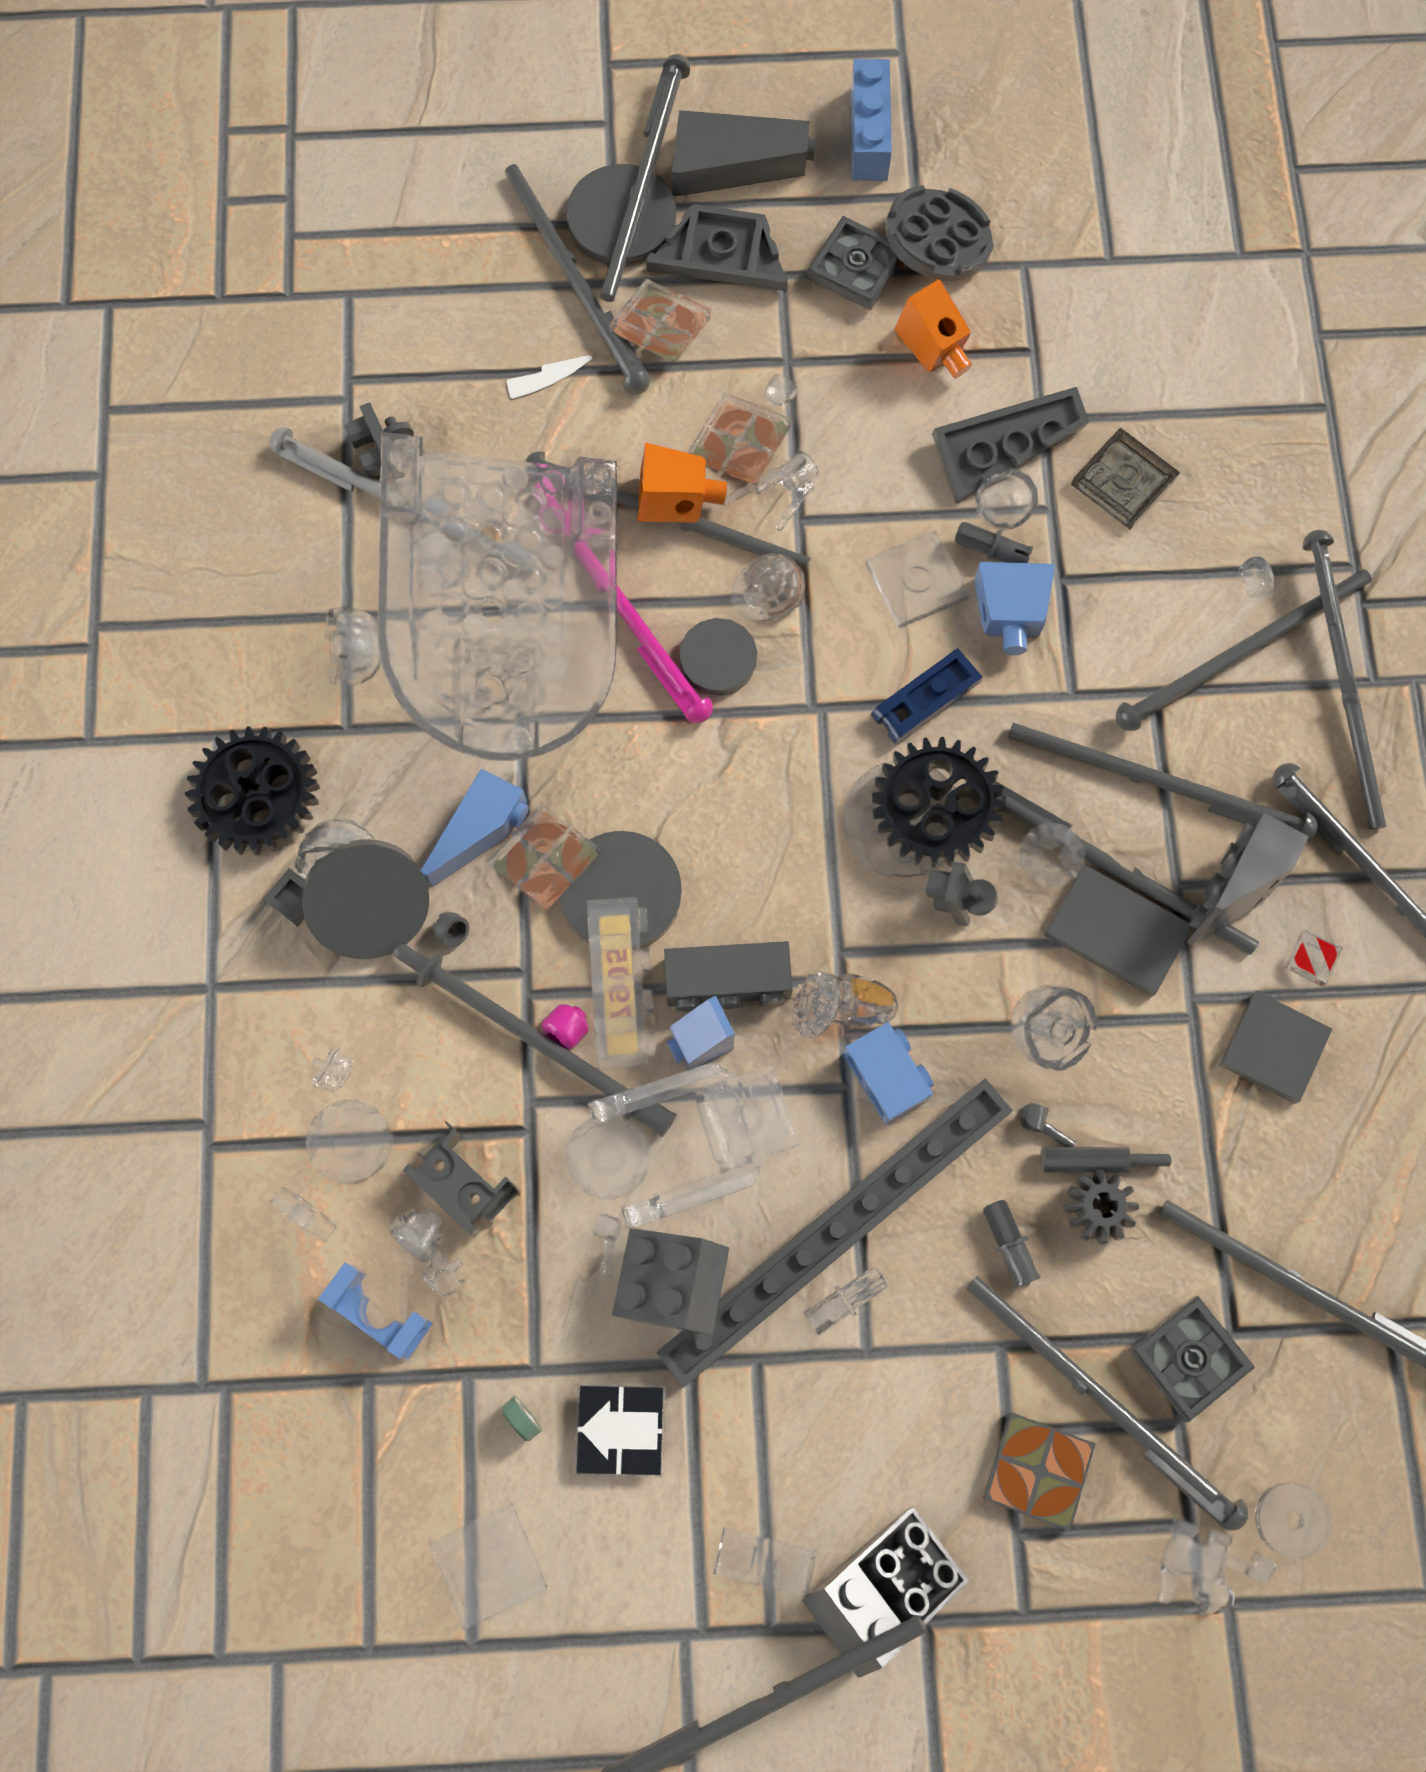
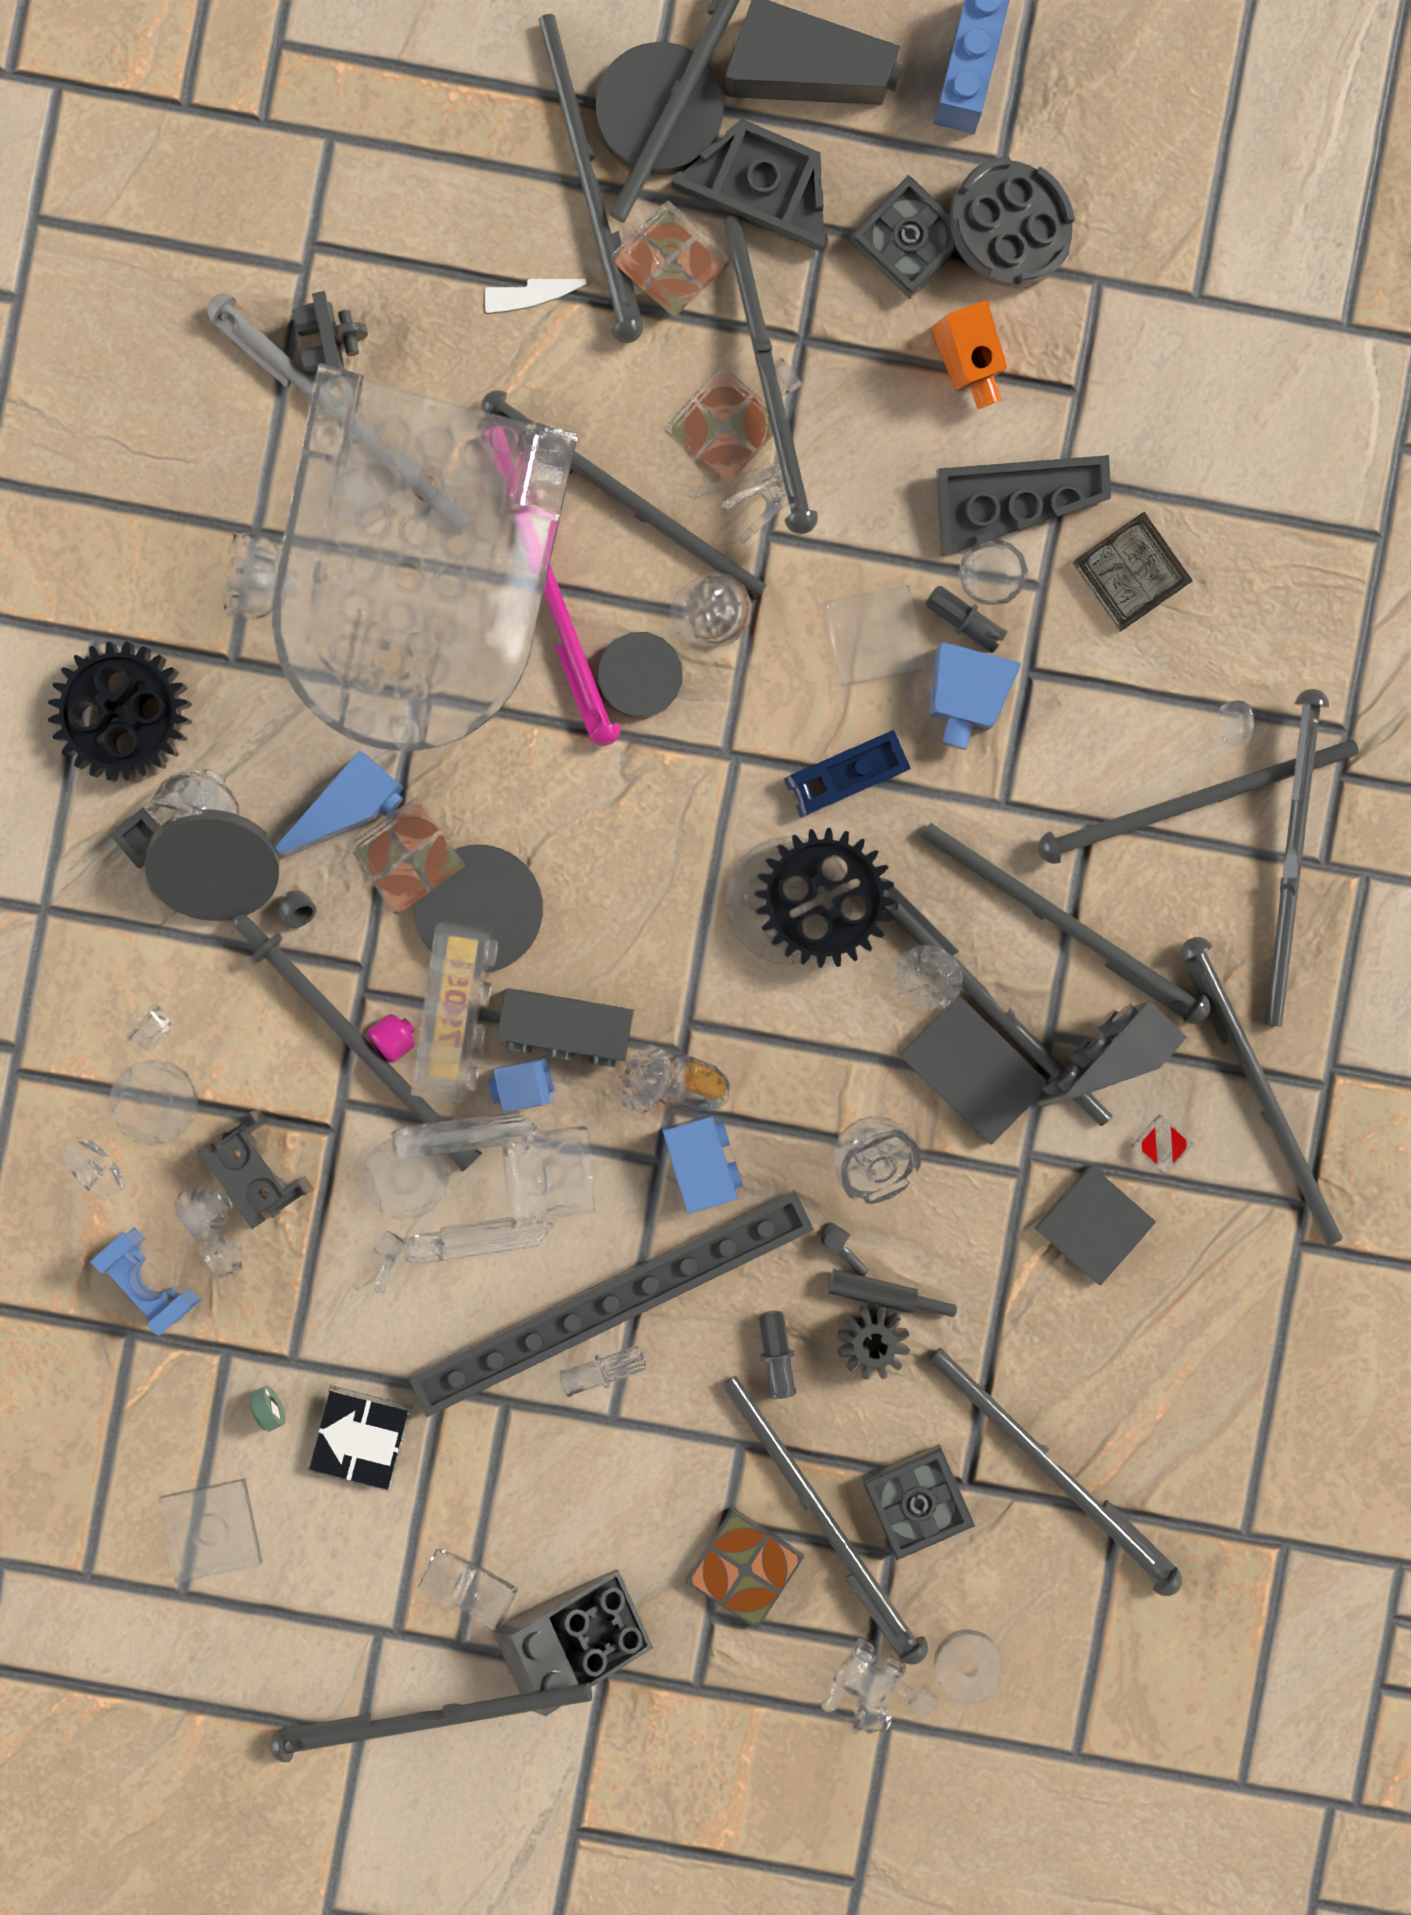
camera: 15 degrees right, 15 degrees up
(671, 1281) = (435, 1320): dark grey brick -> none
(675, 486) = (637, 471): orange torso -> none
(829, 484) = (801, 518): none -> dark grey bar
(960, 893) = (822, 1002): dark grey hips -> none

